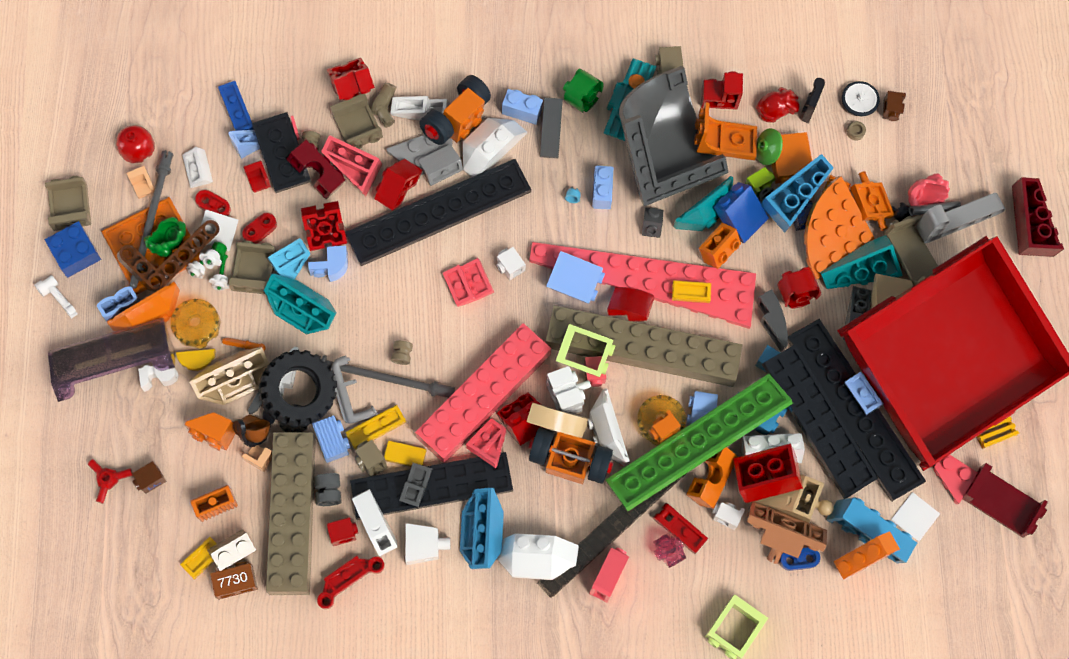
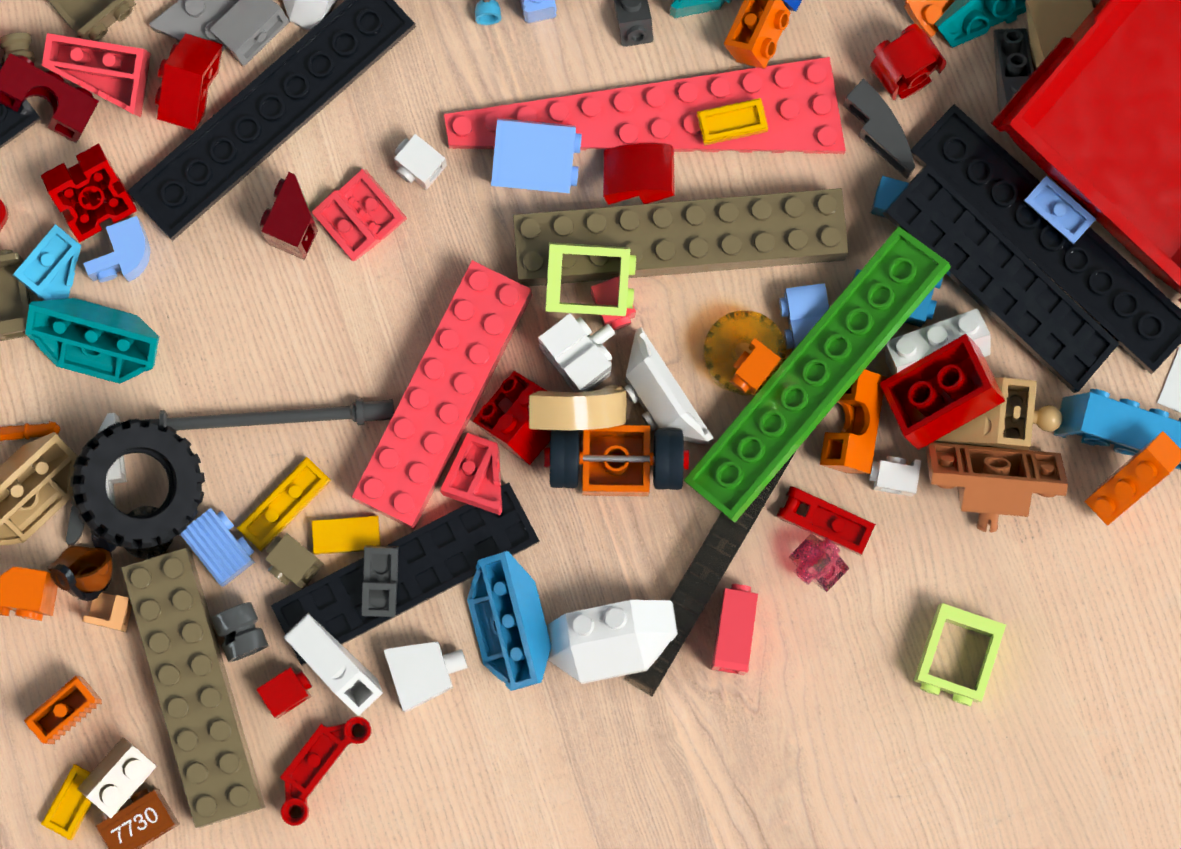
camera: 15 degrees left, 10 degrees up
(343, 397) = (213, 469): light grey piece -> none
(401, 352) = (287, 368): dark tan wheel -> none
(428, 272) = (290, 221): none -> dark red slope
(801, 562) = (1036, 517): blue plate -> none

